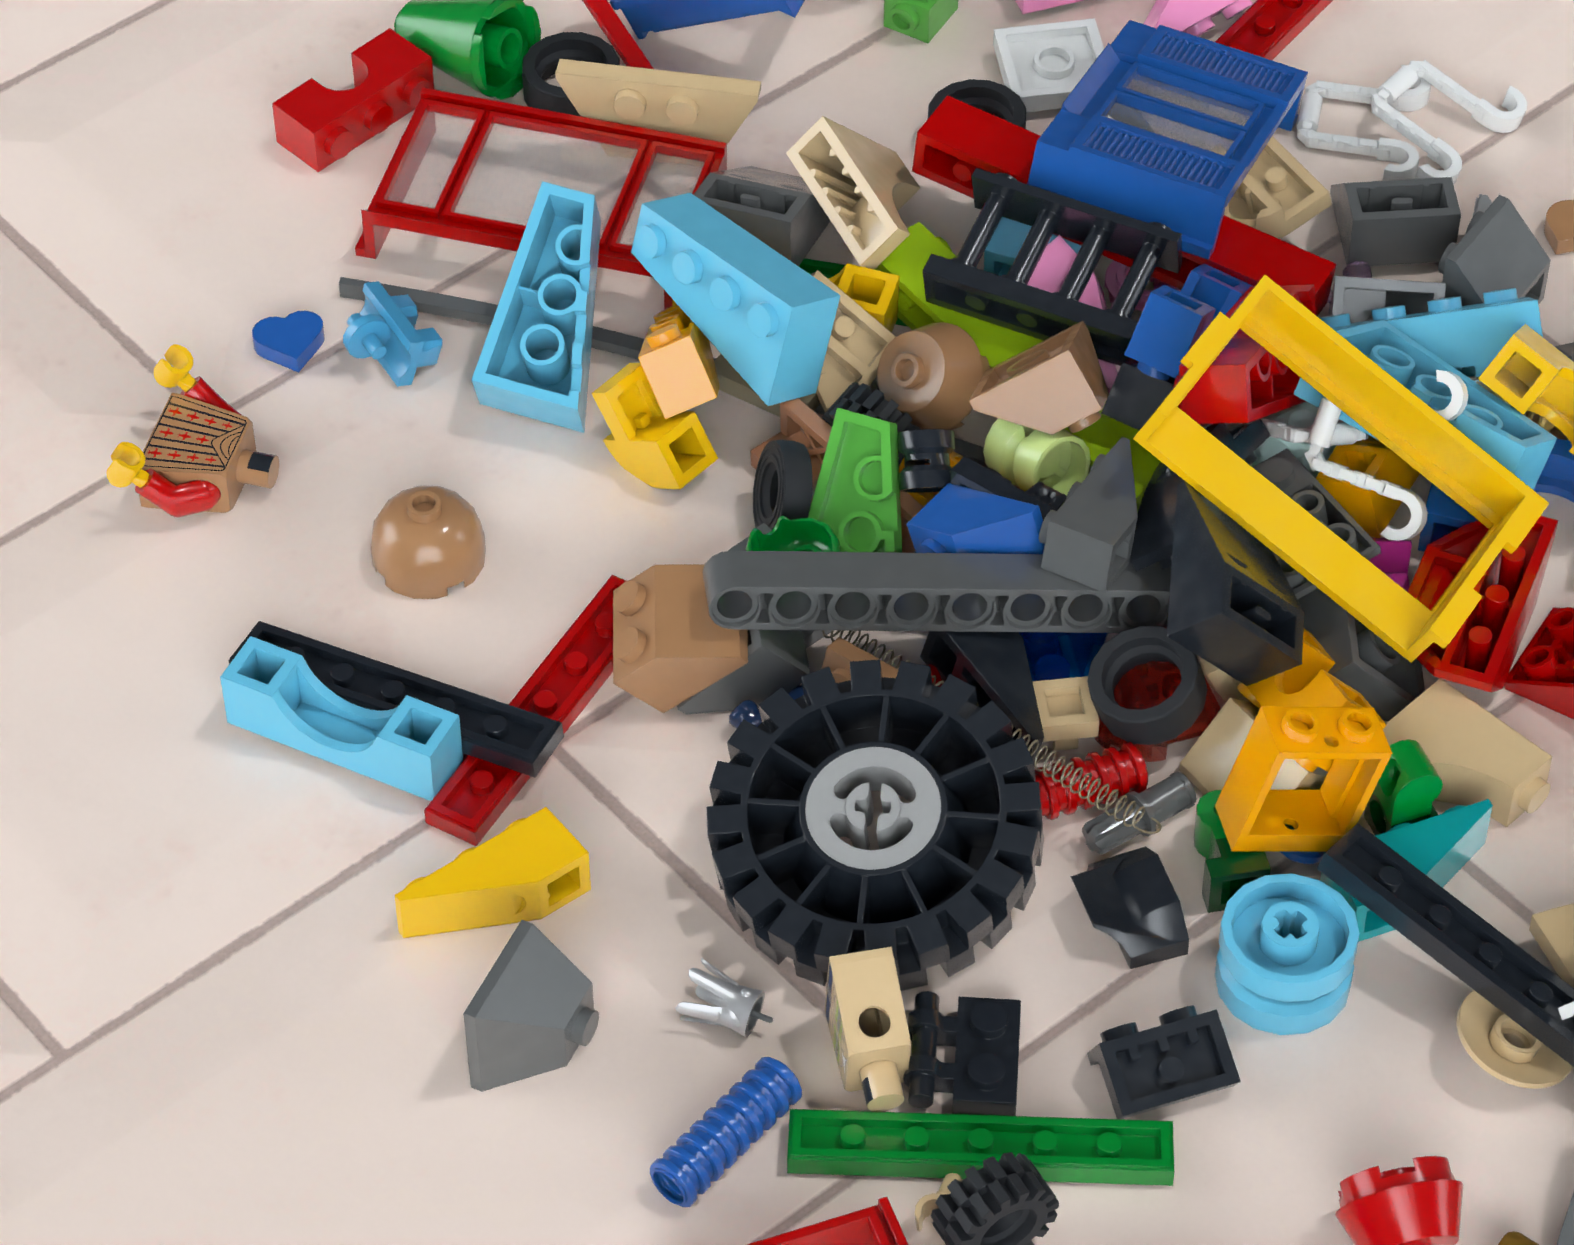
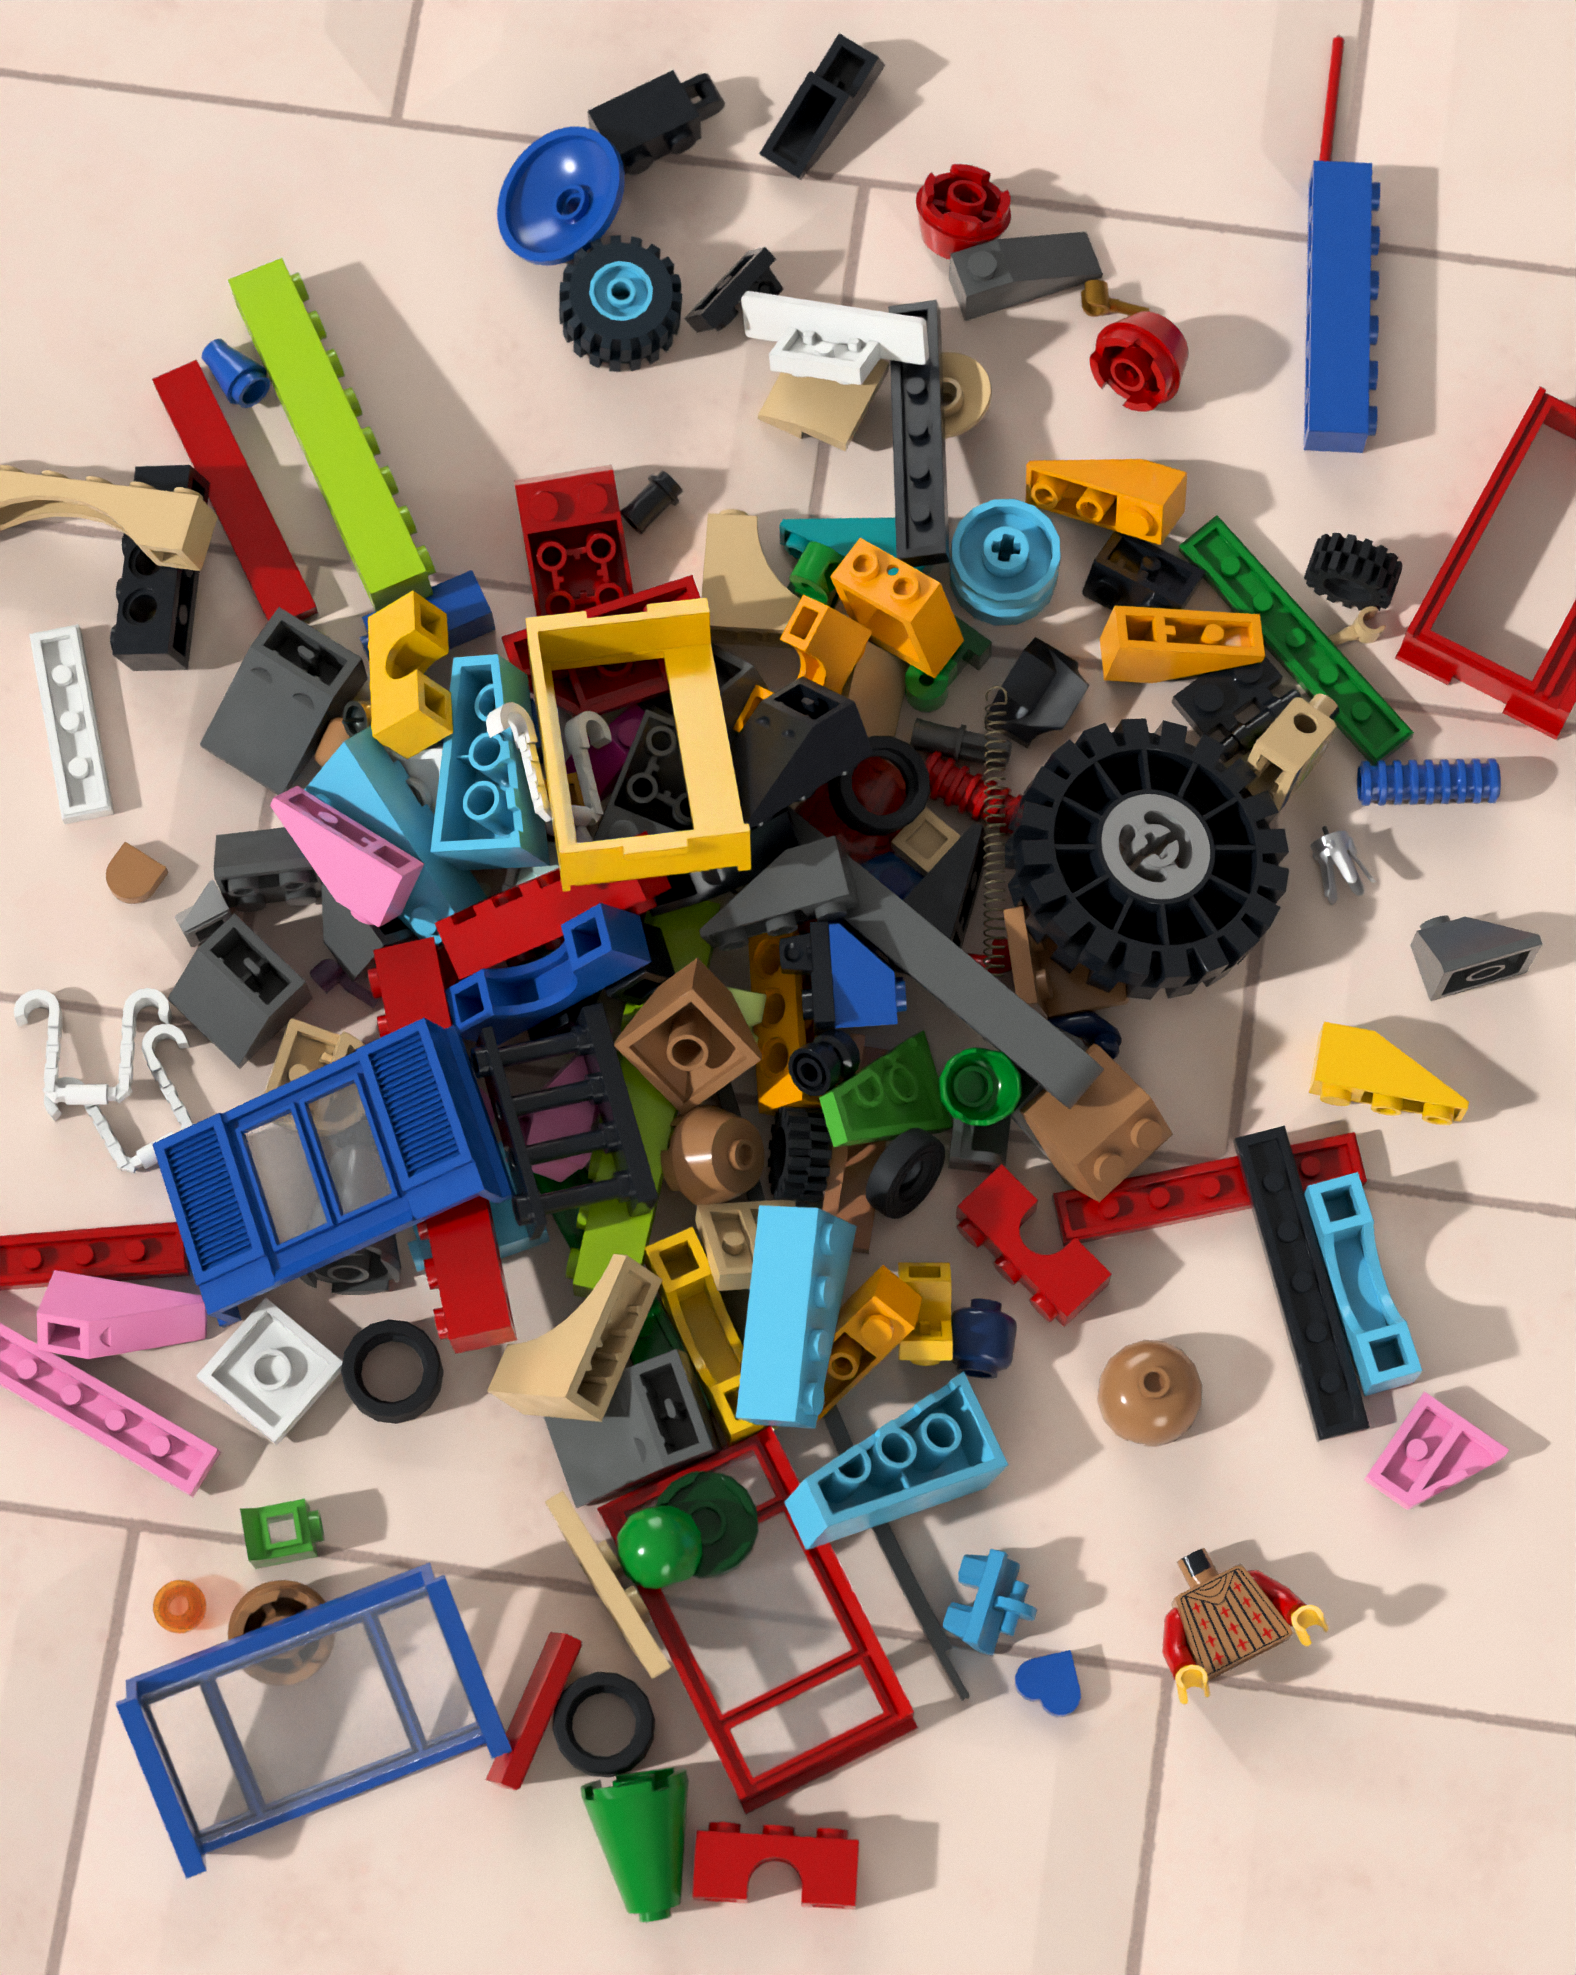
camera: 130 degrees left, 25 degrees up
(157, 682) = (1431, 1454): none -> bright pink wing
(593, 460) = (982, 1339): none -> dark blue head
(593, 536) = (1059, 1281): none -> red arch
(637, 175) = (723, 1516): none -> dark green tile
(654, 130) = (659, 1547): none -> green hair
(1066, 1022) = (1177, 643): none -> light orange slope
(1265, 1097) = (1111, 493): none -> light orange slope
(1439, 271) = (352, 861): none -> bright pink slope

